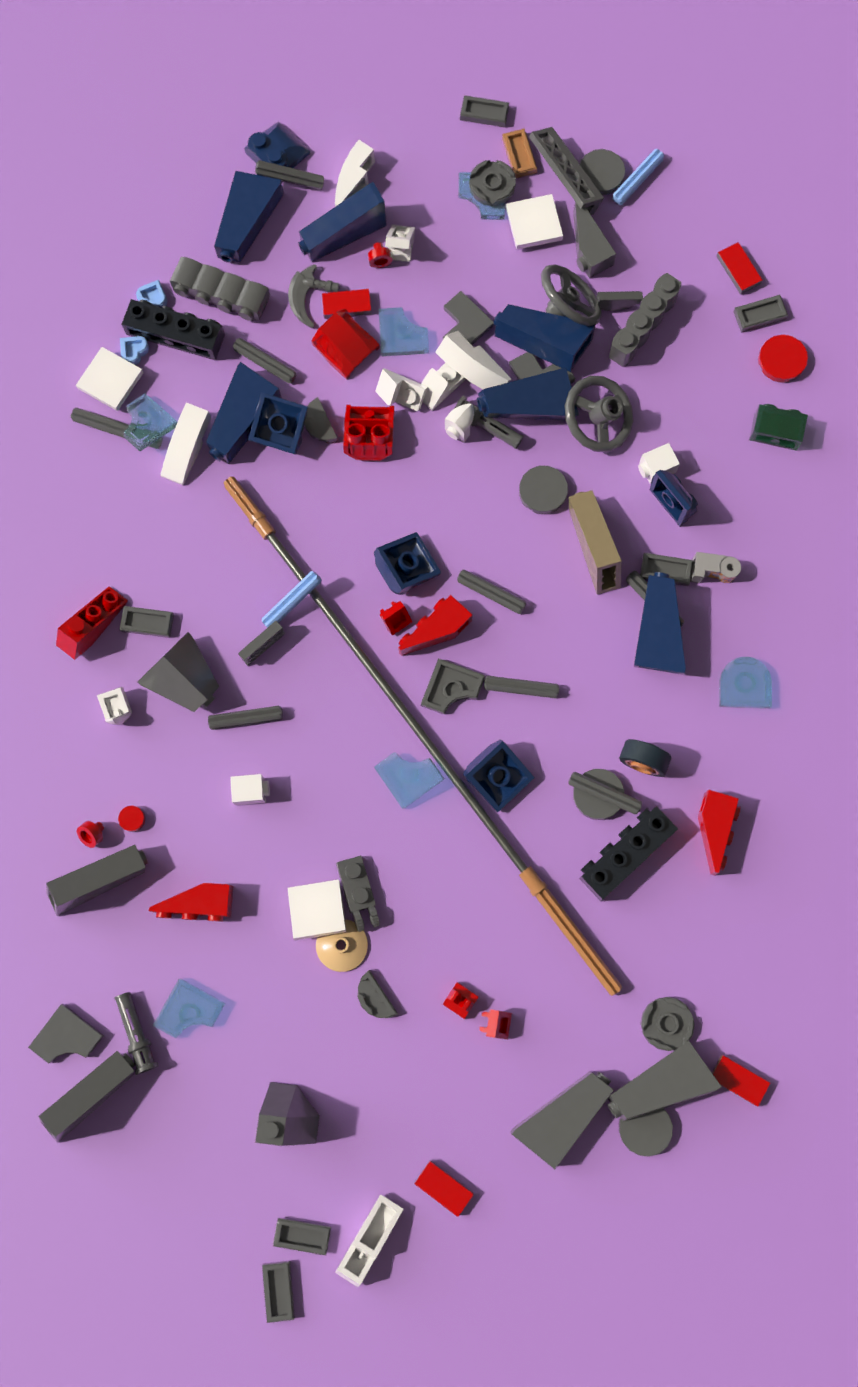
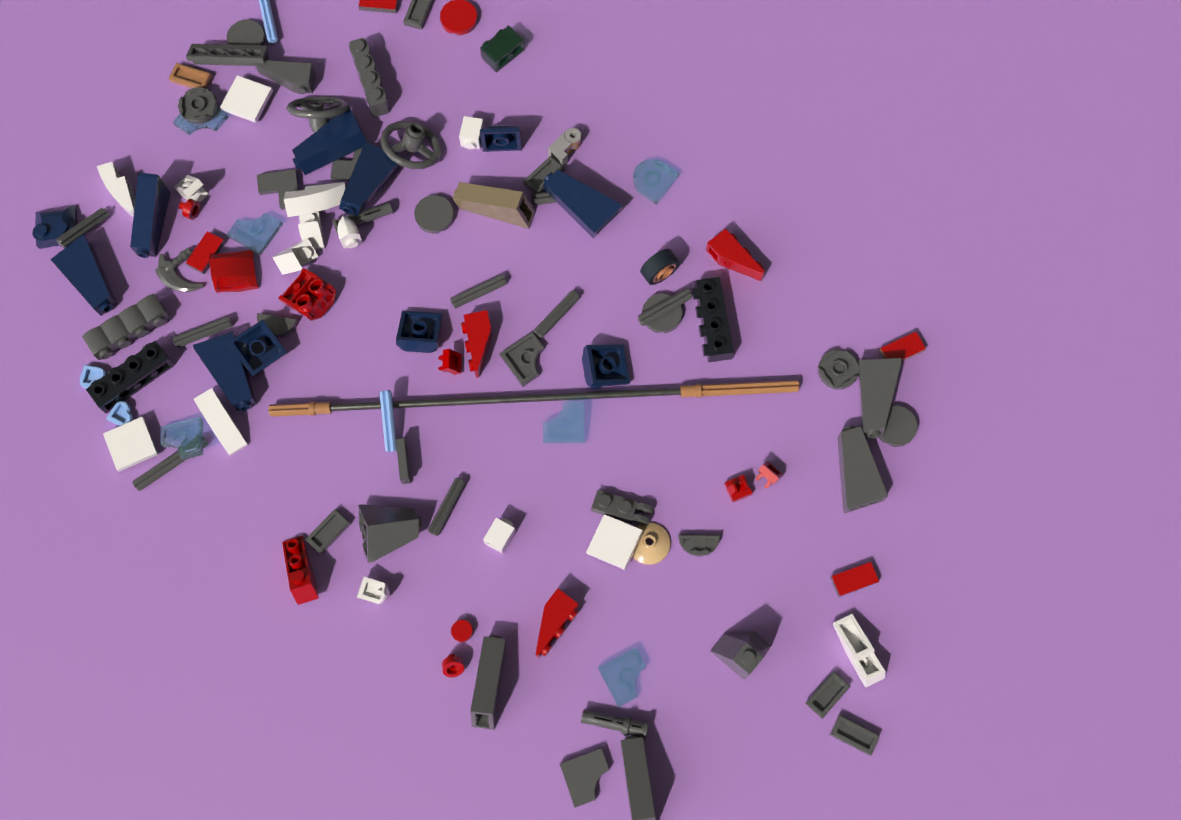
camera: 60 degrees left, 5 degrees down
(484, 111) = (142, 79): dark grey tile -> none
(618, 300) = (343, 83): dark grey tile -> none

